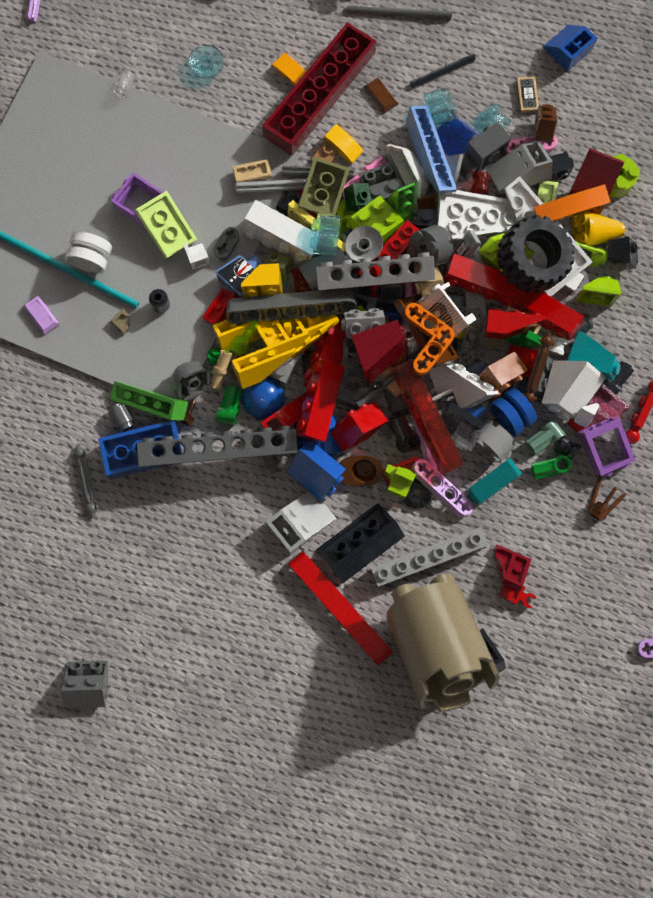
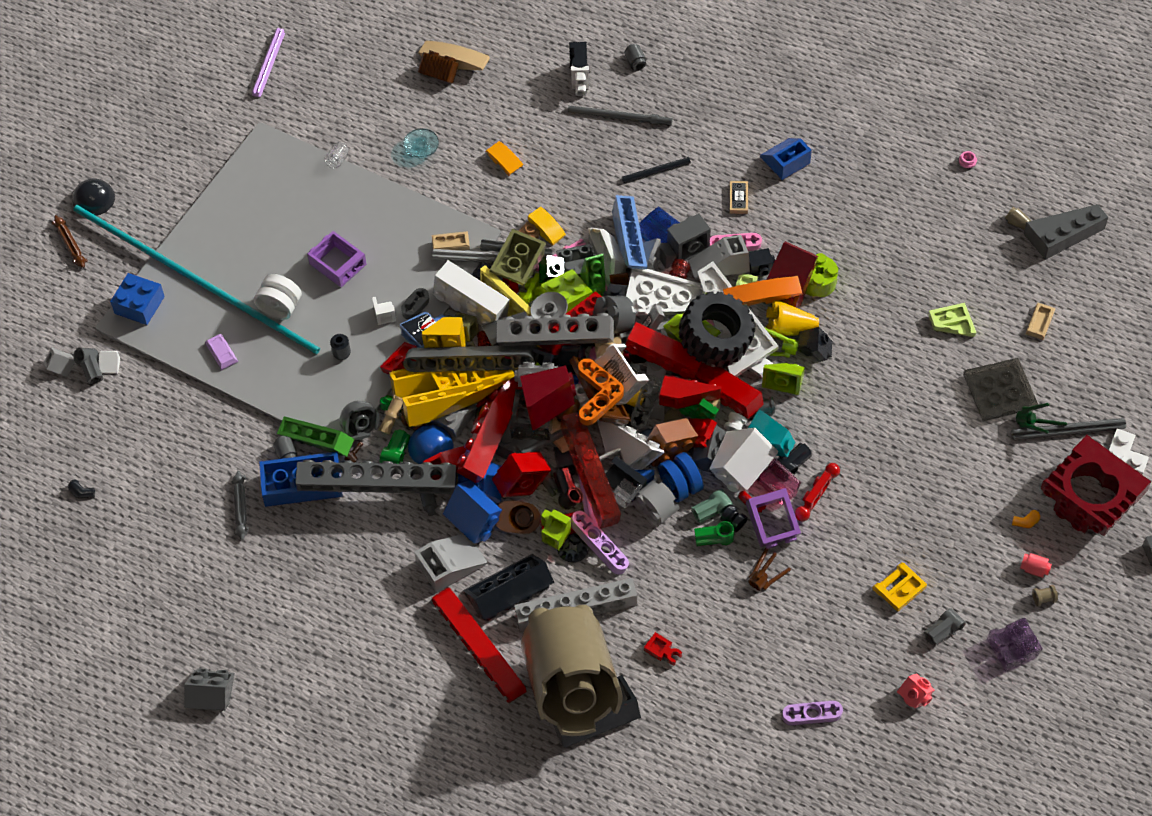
camera: 10 degrees right, 20 degrees down
(121, 321) = (299, 364): dark tan tile -> none
(165, 224) = (357, 279): yellowish green tile -> none
(241, 344) = (417, 388): clear neon green plate -> none
(319, 89) = (528, 174): dark red brick -> none
(326, 234) = (512, 296): clear light blue brick -> none
(381, 95) = (591, 186): reddish brown tile -> none
(440, 106) = (647, 199): clear light blue brick -> none
(492, 115) = (702, 209): clear light blue plate -> none
(493, 482) = (653, 540): teal slope -> none
(511, 567) = (660, 622): dark red wing -> none
(538, 367) = (708, 433): reddish brown wheel -> none
(545, 123) = (750, 221): reddish brown brick -> none
(586, 415) = (756, 486): white slope -> none

